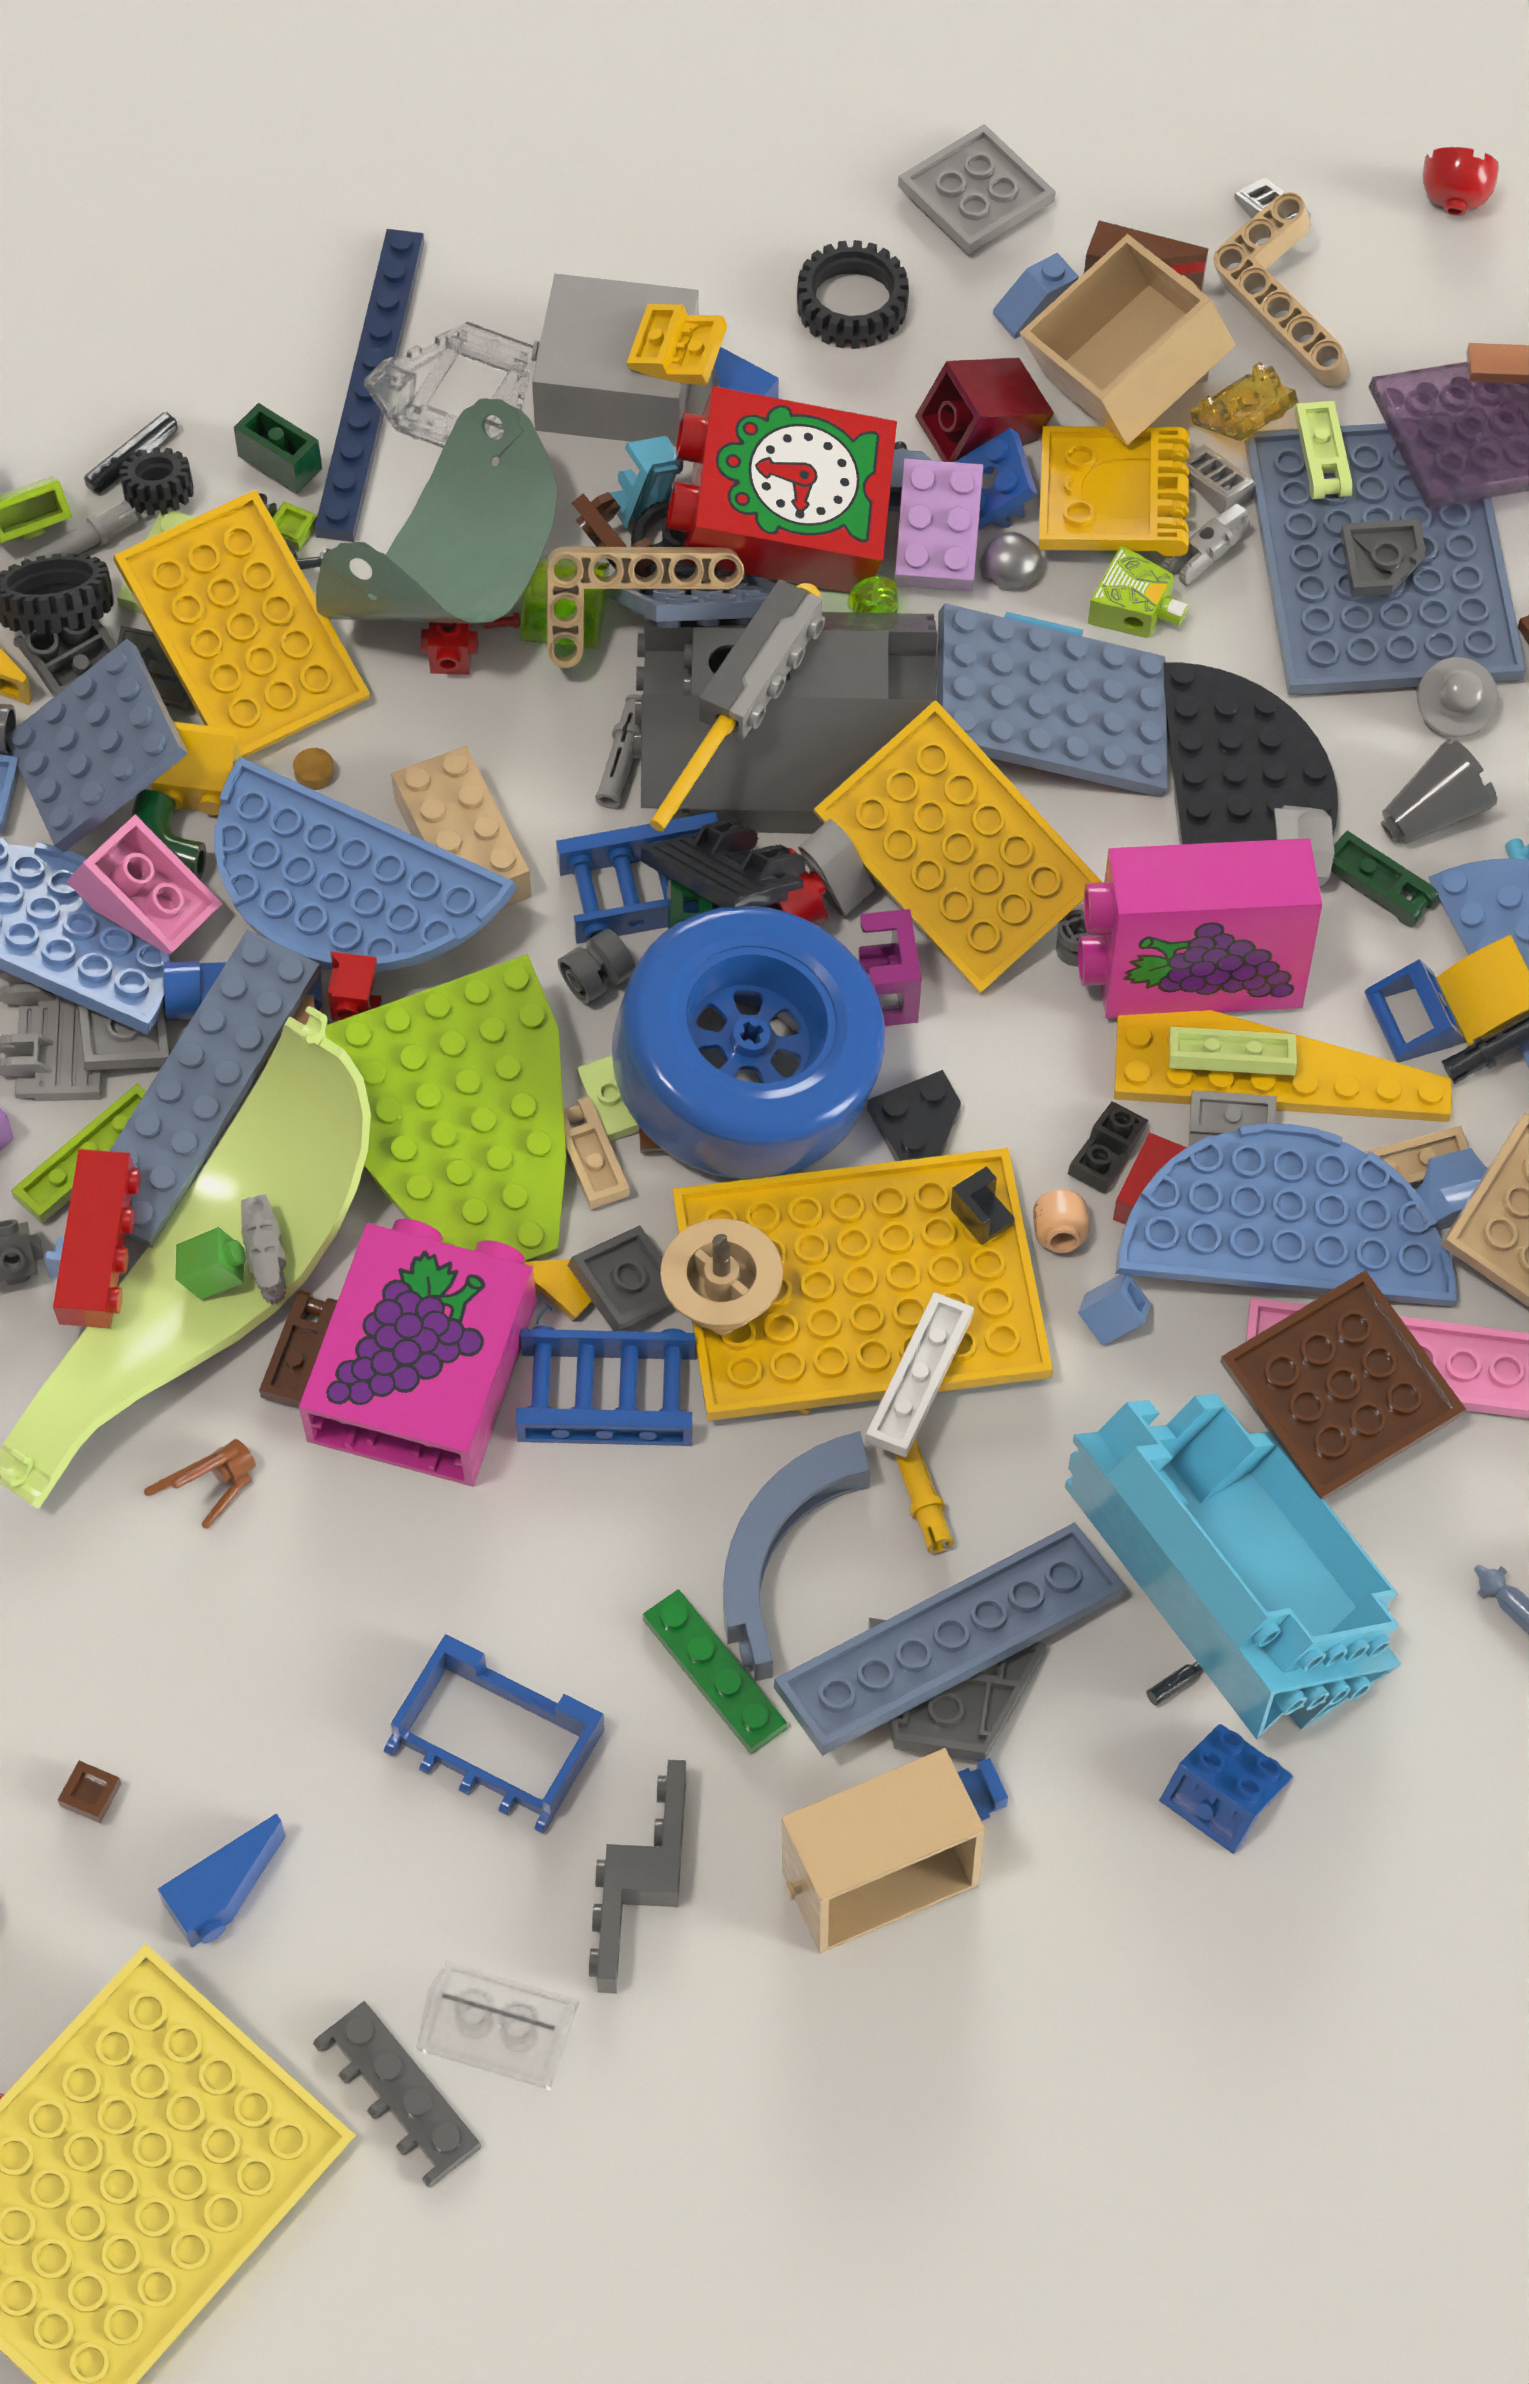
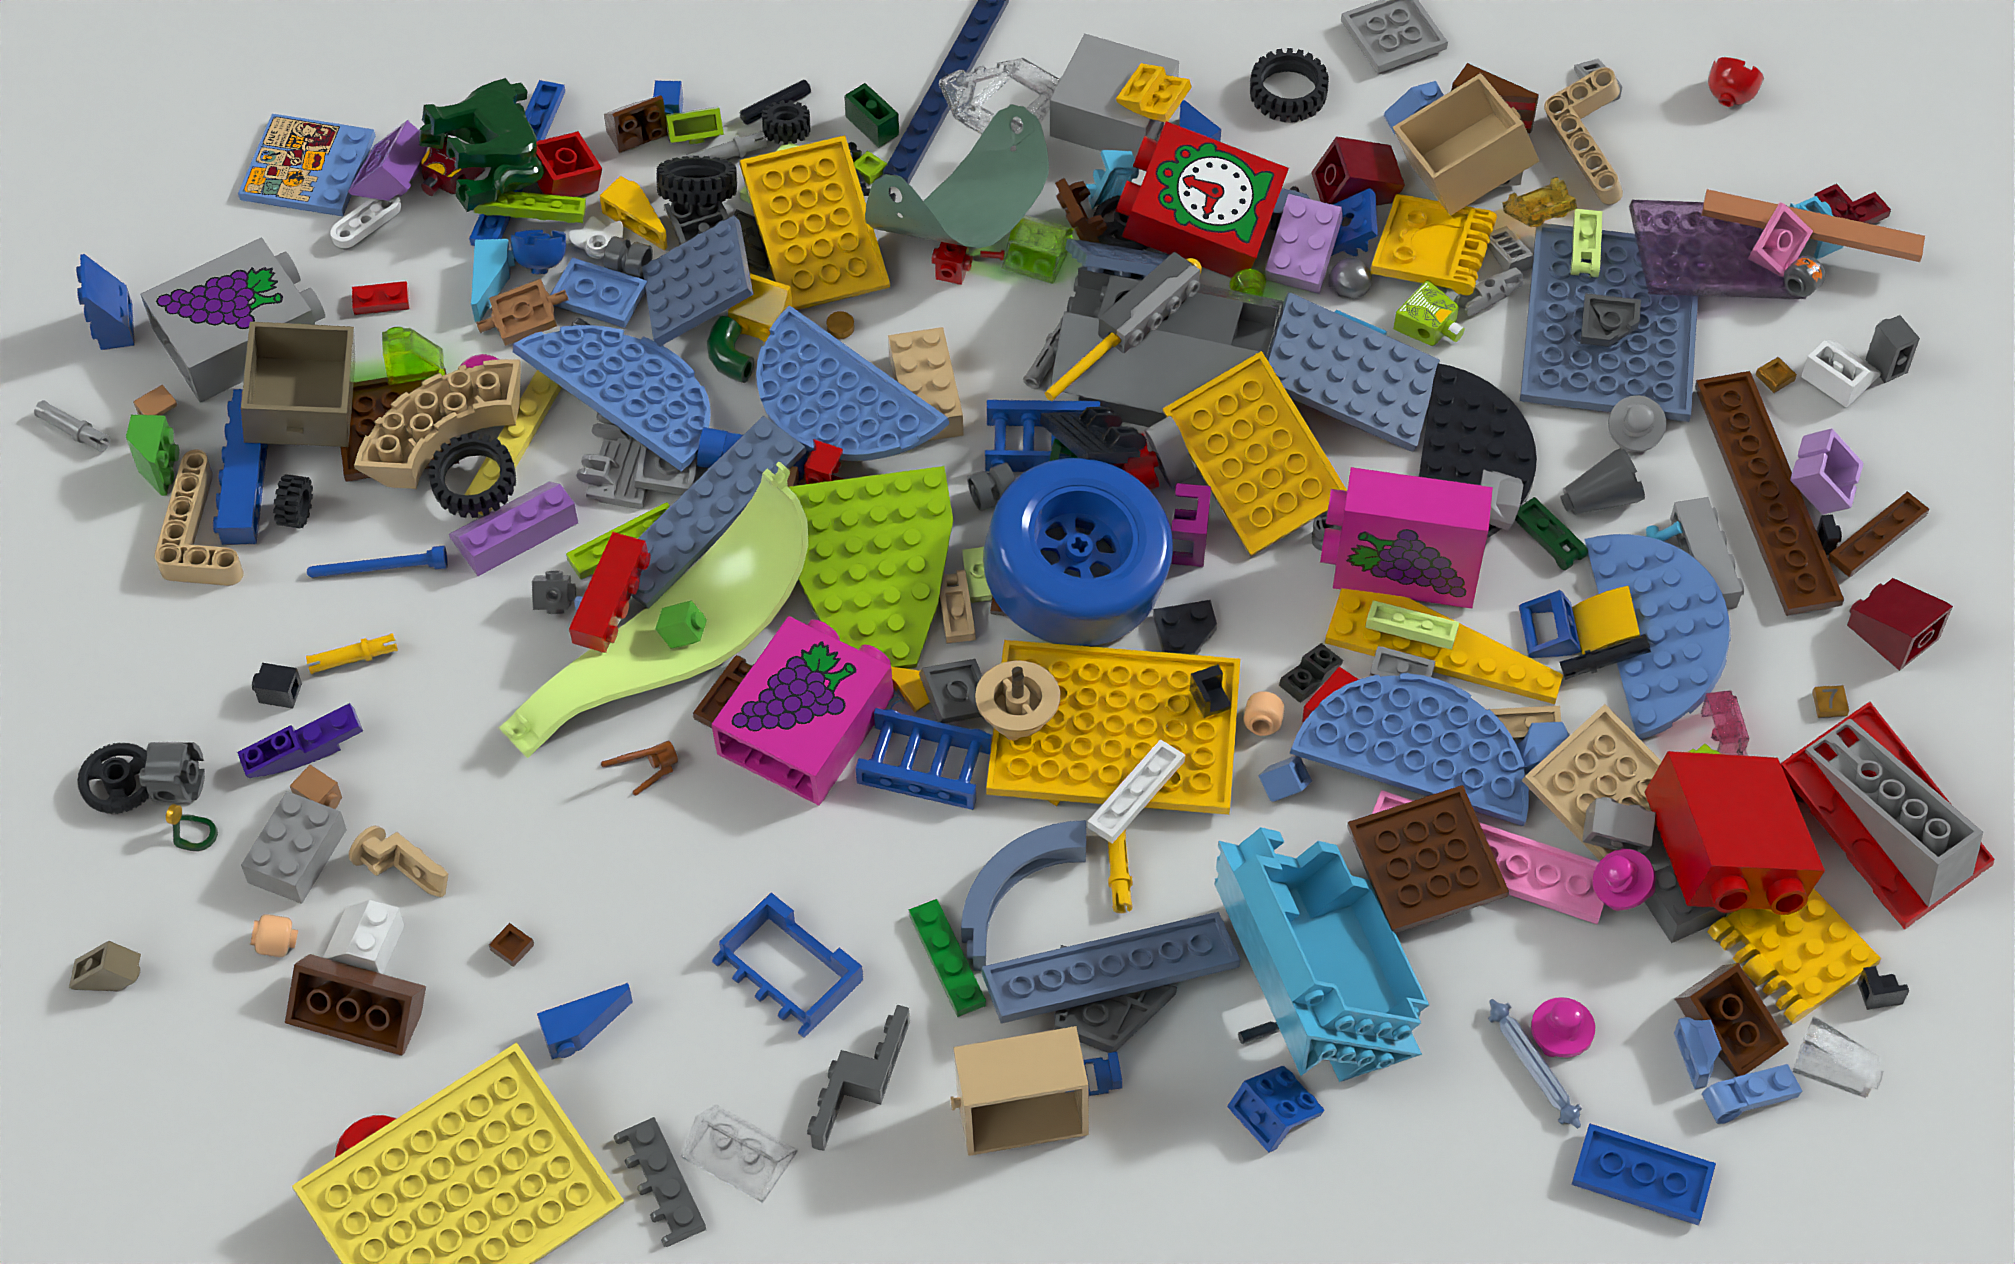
camera: 15 degrees right, 5 degrees down
(144, 887) = (704, 376): bright pink slope -> none
(263, 1247) = (719, 621): light grey hinge -> none
(623, 578) = (1078, 237): tan beam -> none

